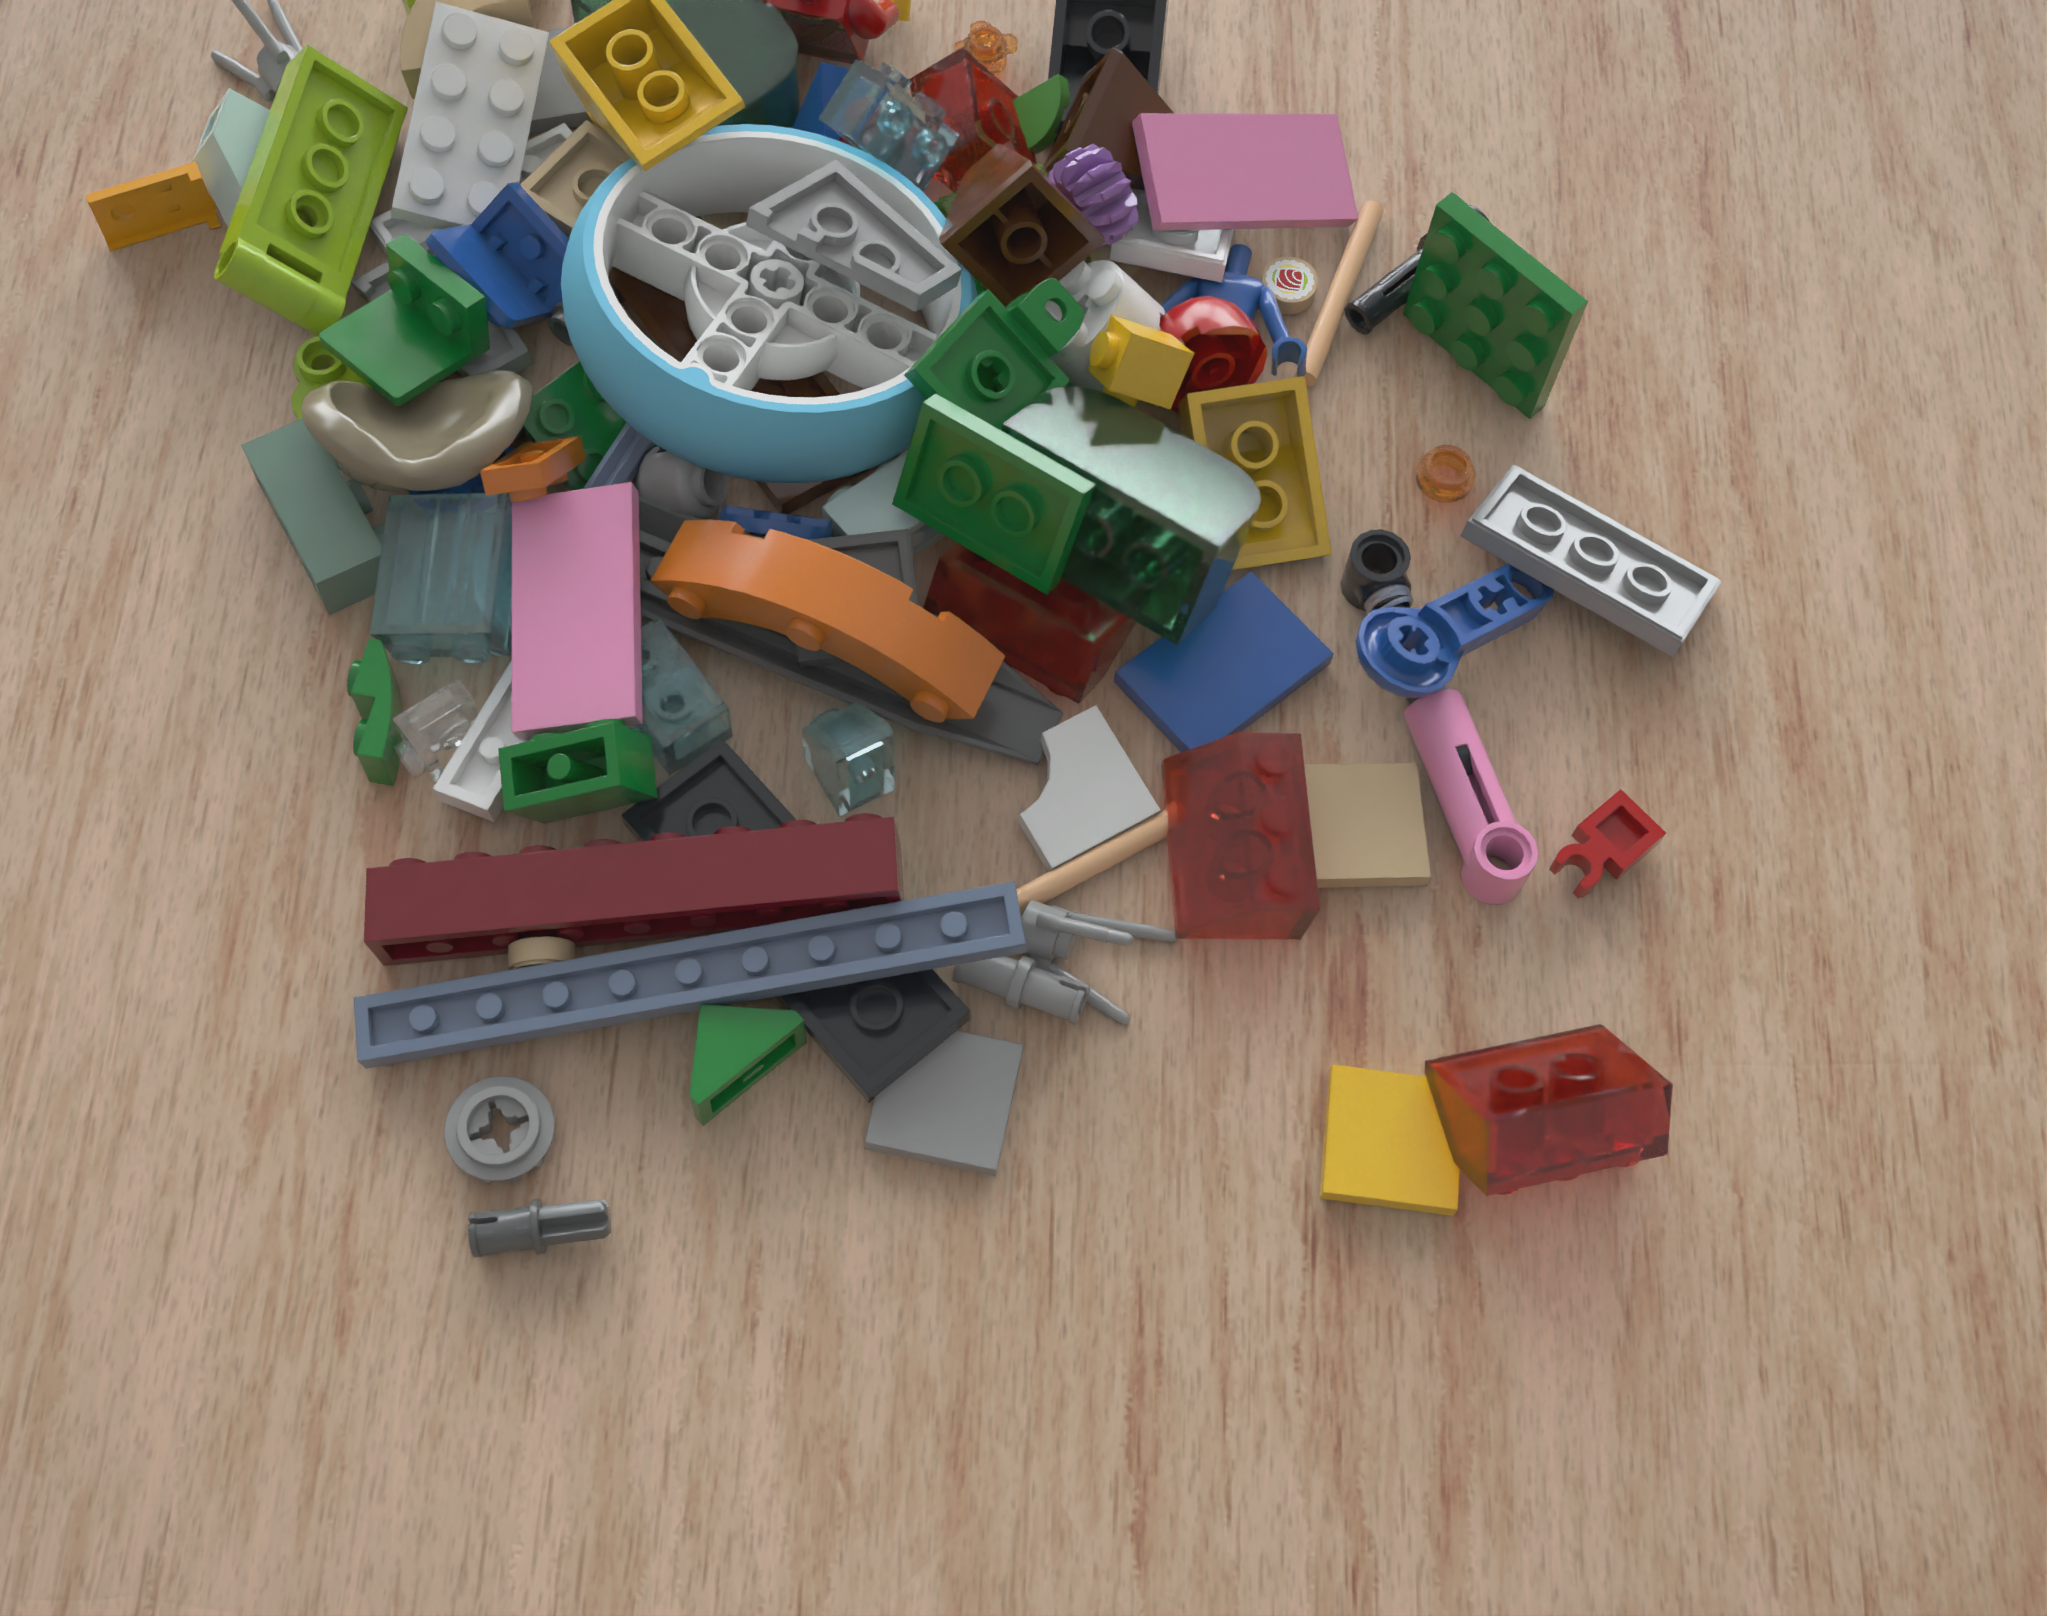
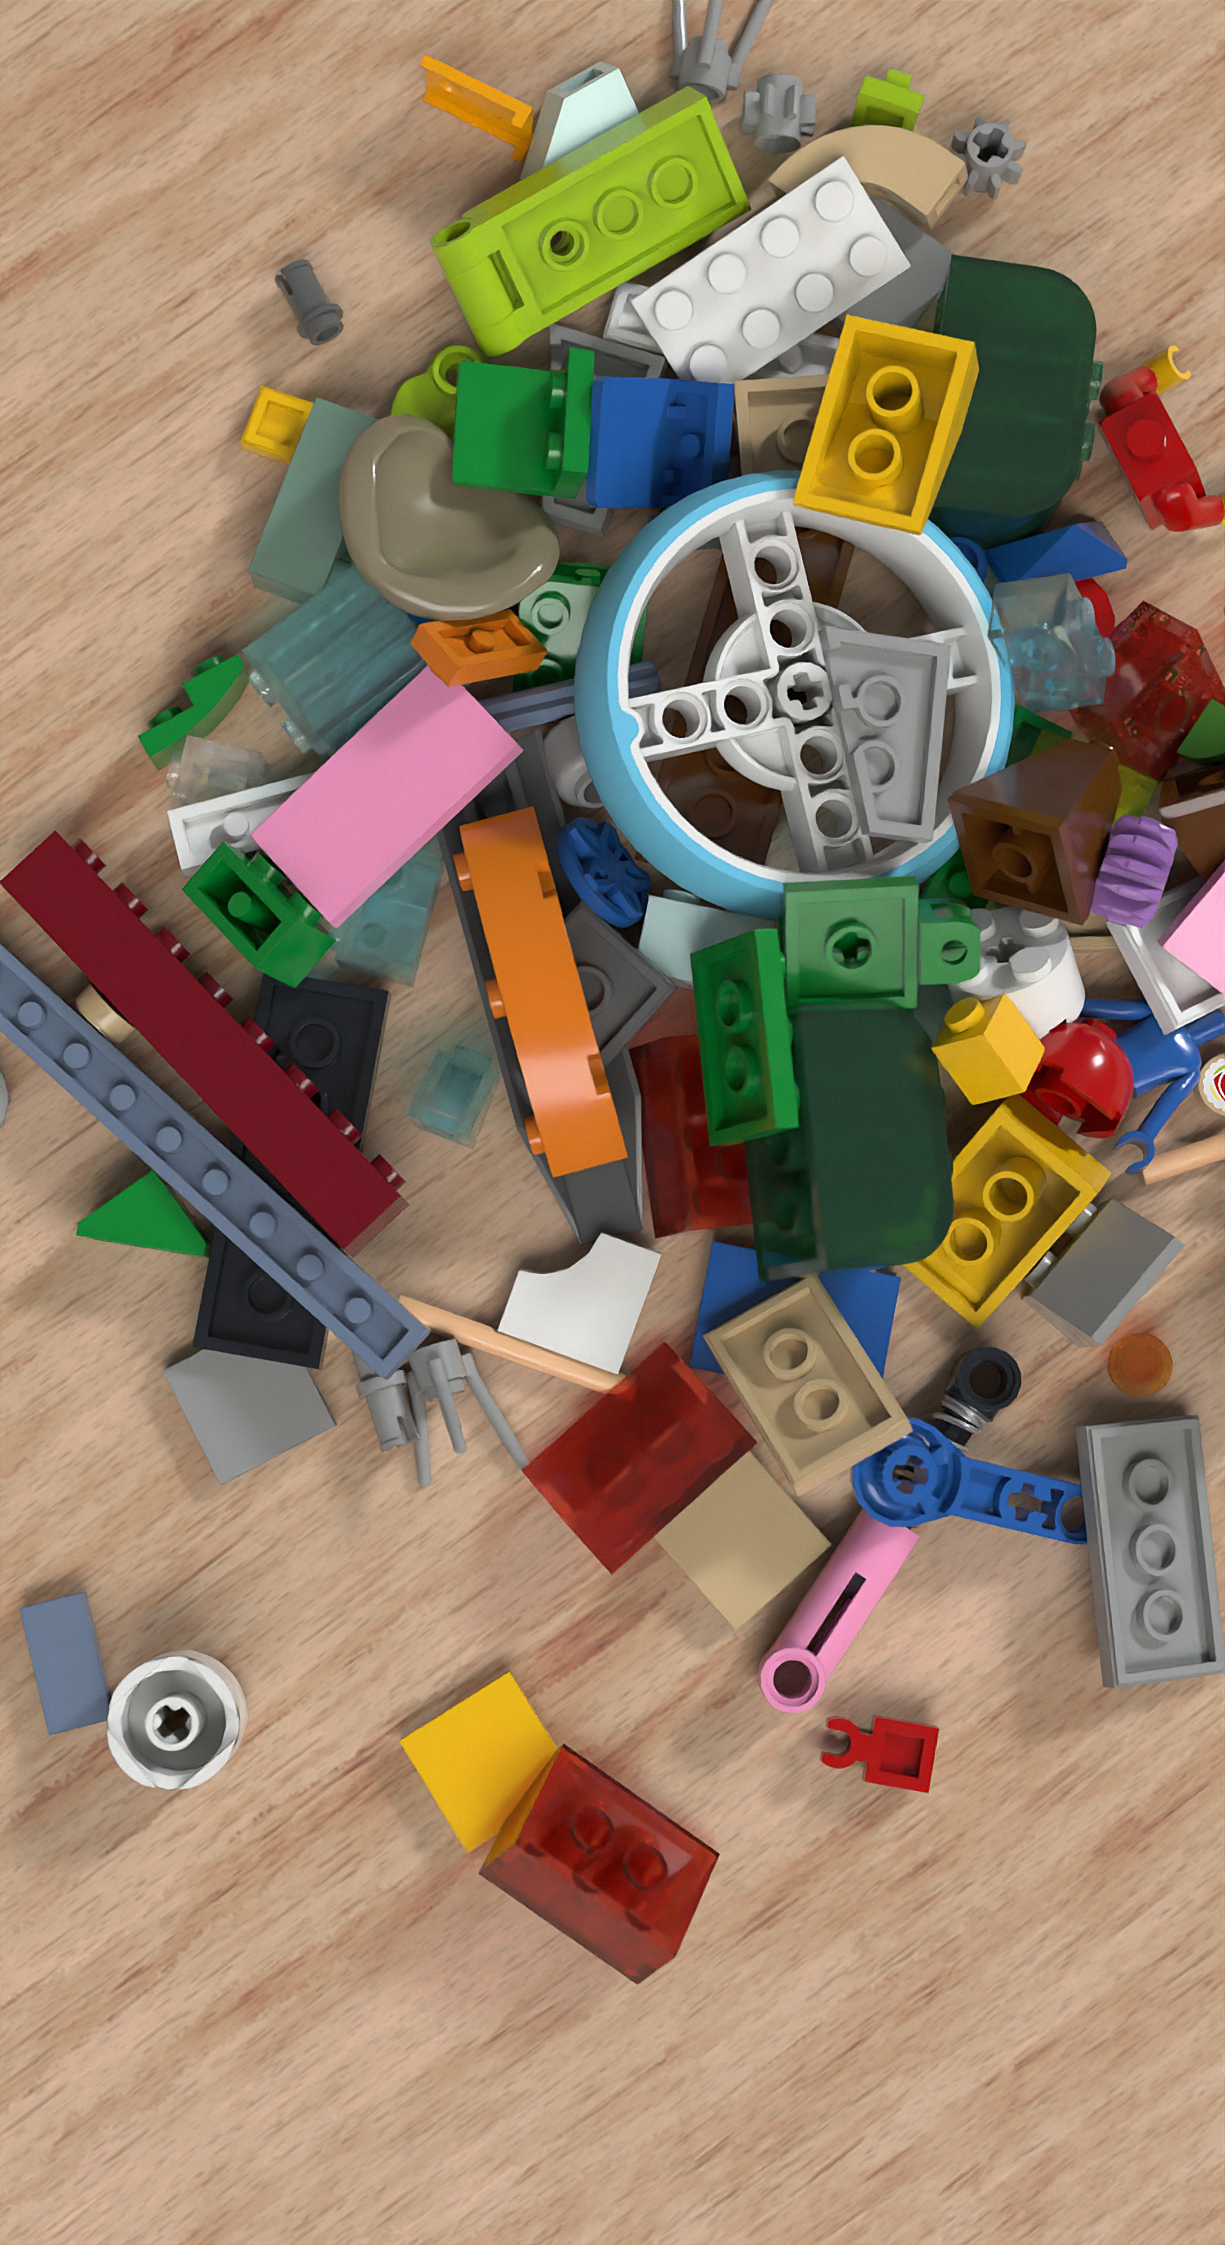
camera: 50 degrees right, 20 degrees up
(183, 416) = (316, 315): none -> dark grey pin
(234, 505) = (275, 425): none -> yellow tile
(363, 46) = (778, 113): none -> light grey gear
(1041, 1415) = (67, 1662): none -> sand blue tile
(1197, 1321) = (139, 1714): none -> white brick
(1284, 666) = (807, 1384): none -> tan tile
(1364, 435) = (1099, 1272): none -> light grey slope

